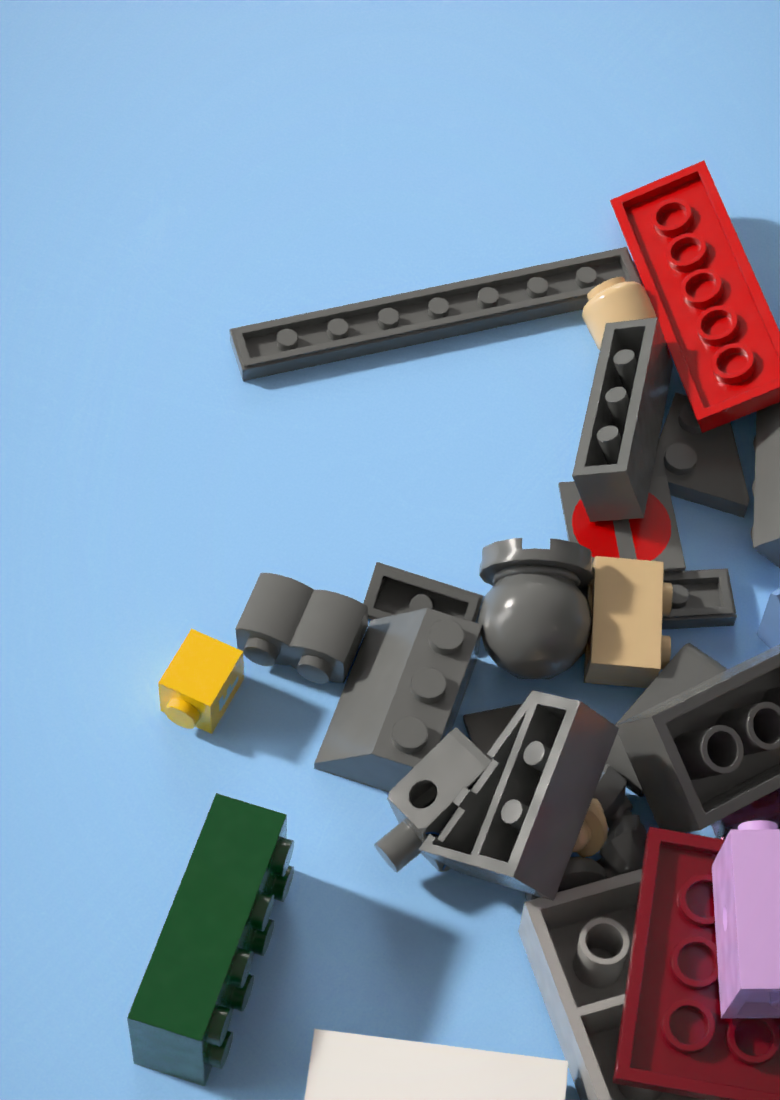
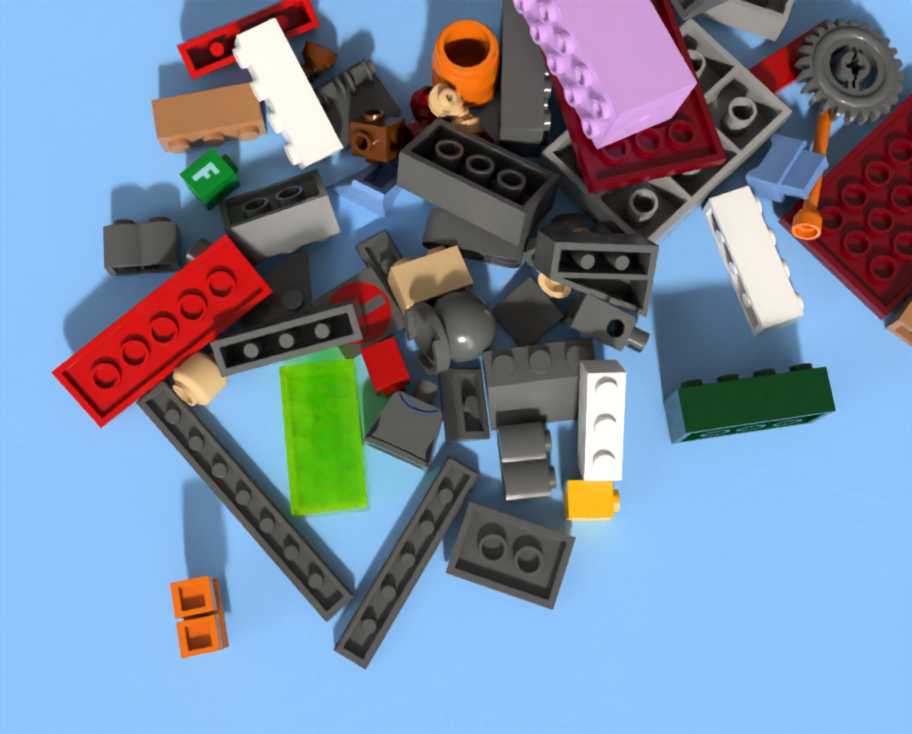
camera: 115 degrees left, 20 degrees up
(185, 559) = (510, 555): none -> dark grey plate
(255, 453) = (406, 562): none -> dark grey tile
(303, 722) = (601, 420): none -> white brick
(311, 194) = (202, 612): none -> orange hips
(425, 515) = (408, 426): none -> dark grey torso
(462, 408) = (324, 439): none -> clear neon green brick
(526, 514) = (386, 367): none -> red brick

